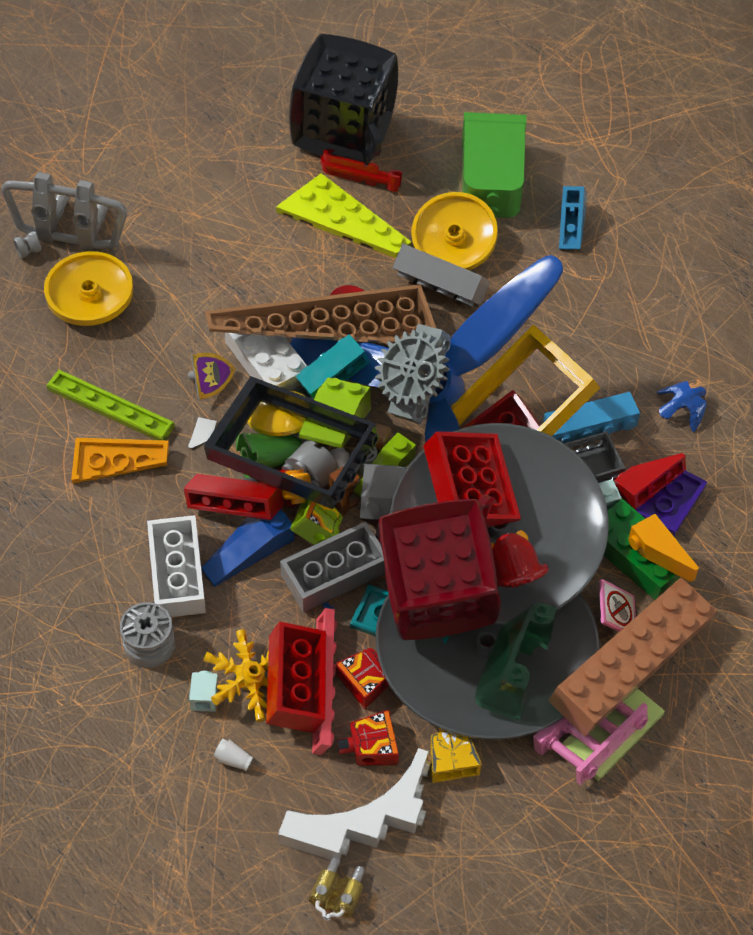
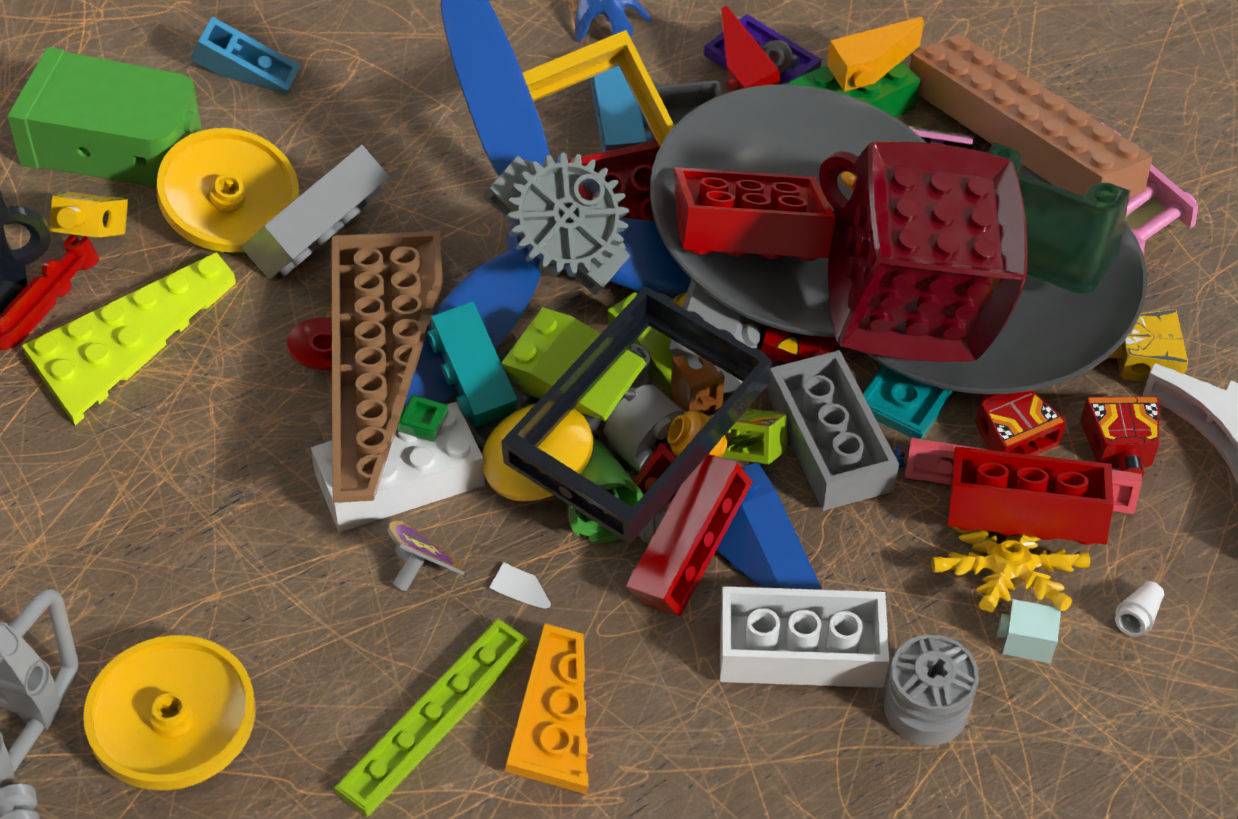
camera: 80 degrees left, 5 degrees down
(286, 351) = (422, 418): none -> green tile
(415, 172) = (84, 214): none -> yellow torso
(660, 501) = (781, 55): none -> dark grey plate

